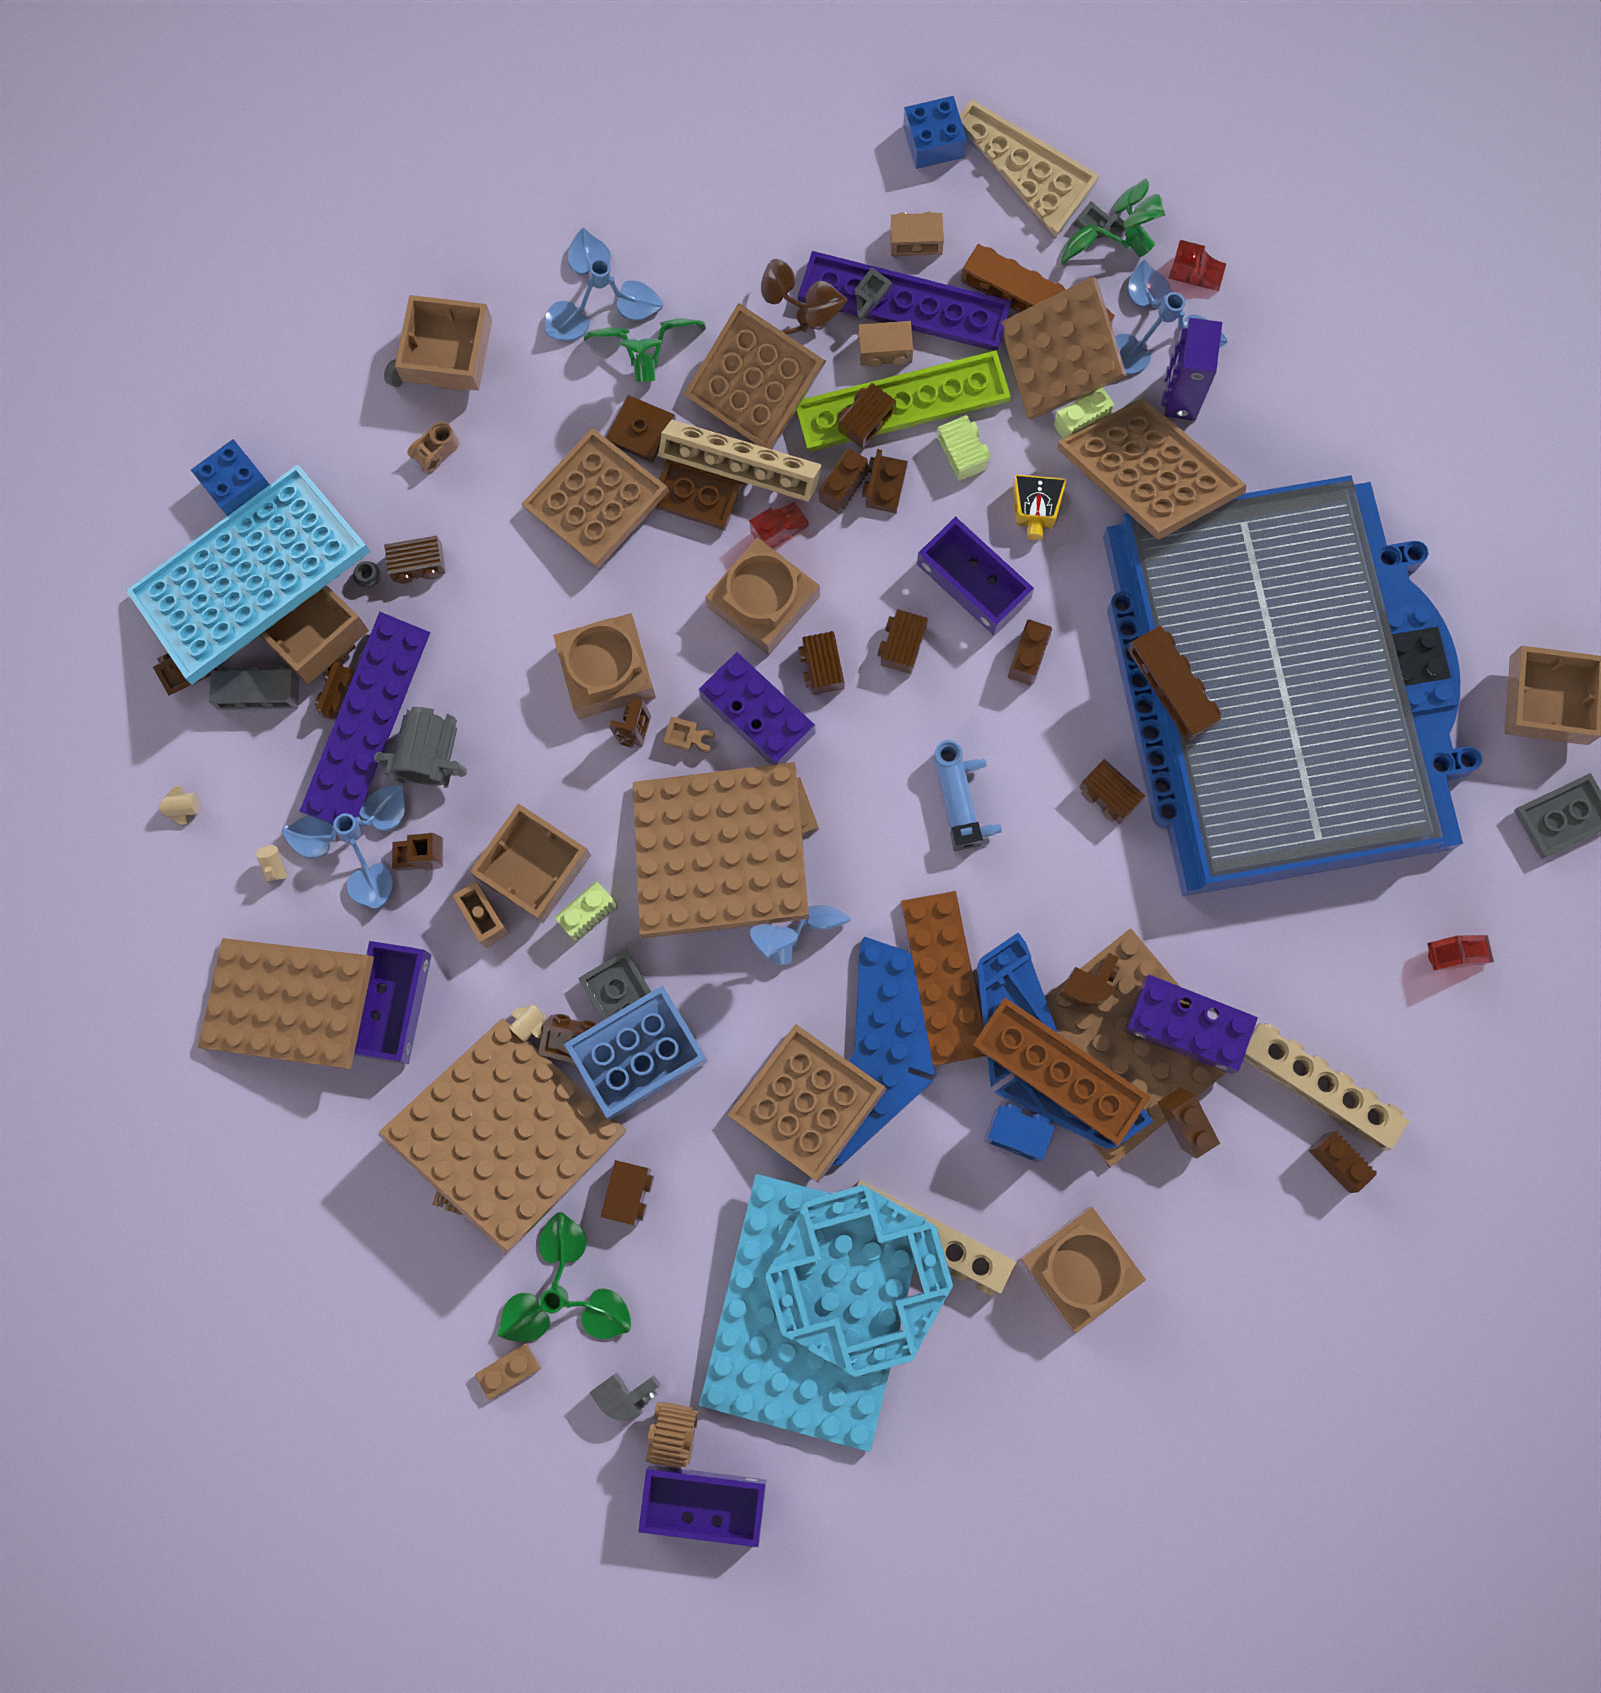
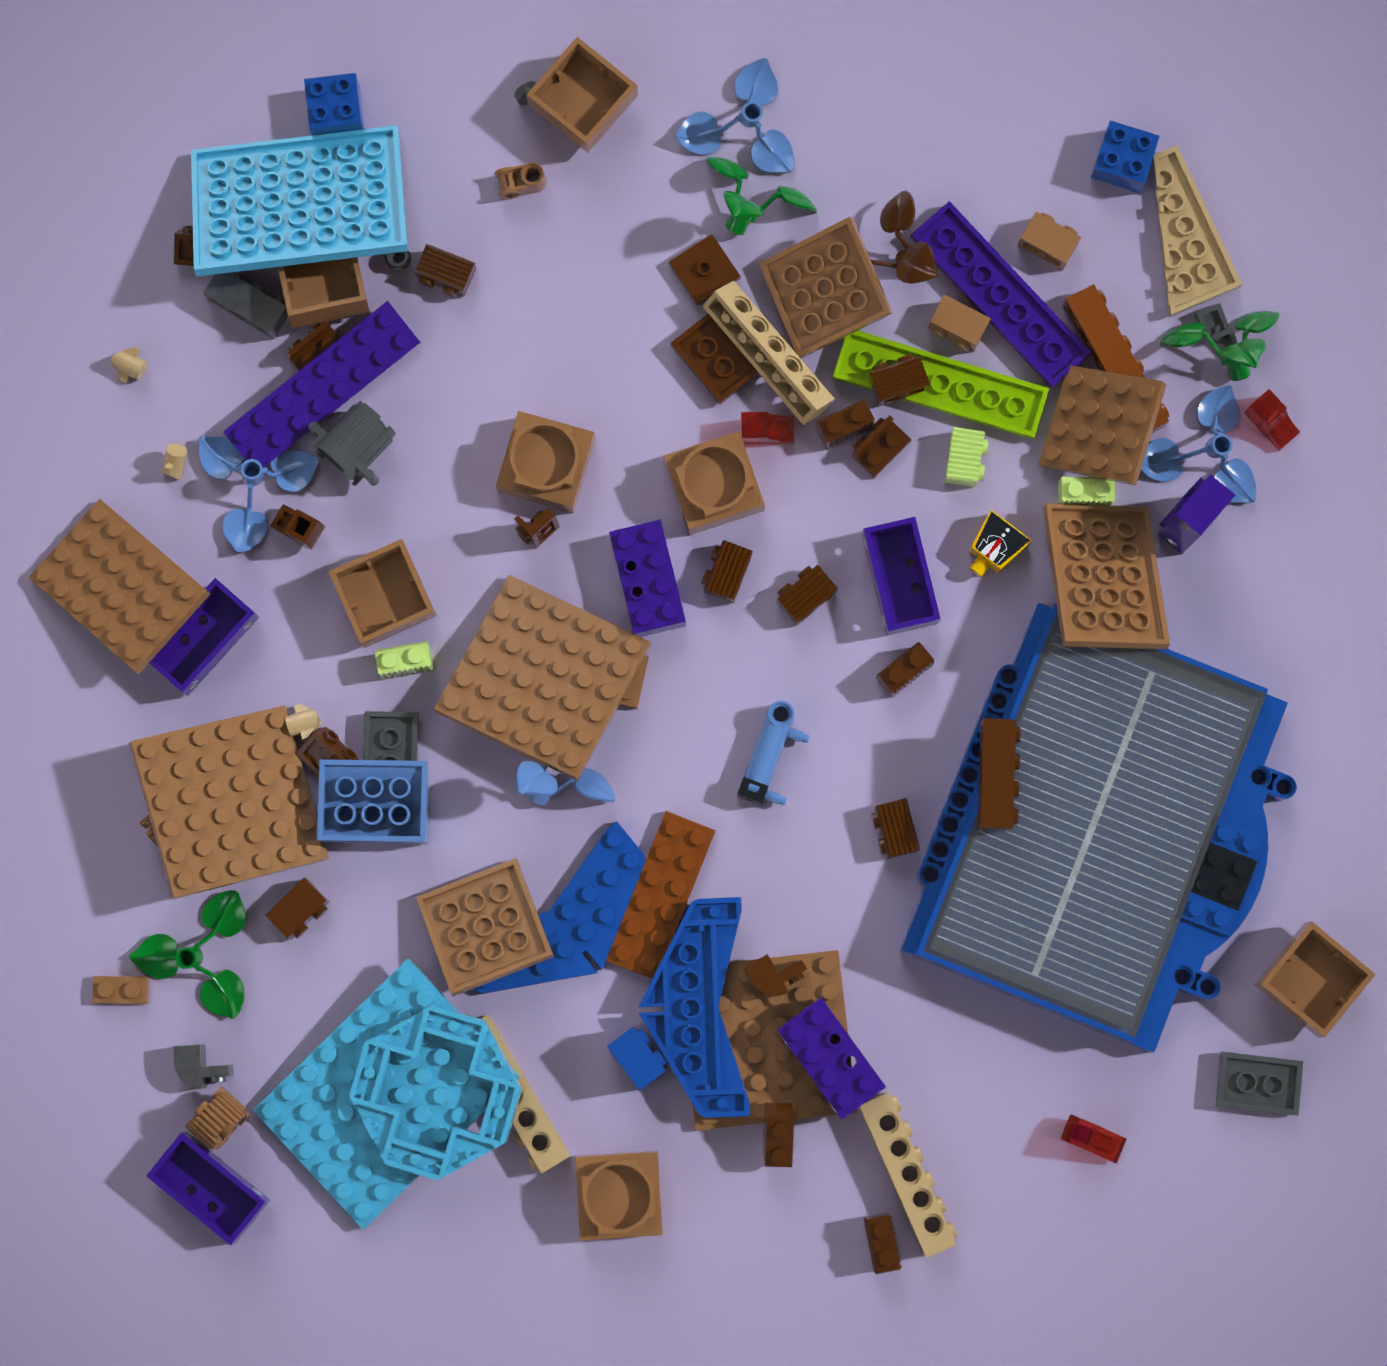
camera: 25 degrees right, 5 degrees up
(480, 914) = (318, 610): medium nougat brick -> none
(595, 497) = (627, 310): medium nougat plate -> none
(684, 734) = (576, 560): medium nougat plate -> none
(871, 292) = (974, 271): dark grey slope -> none
(1061, 1071) = (700, 1030): dark orange plate -> none

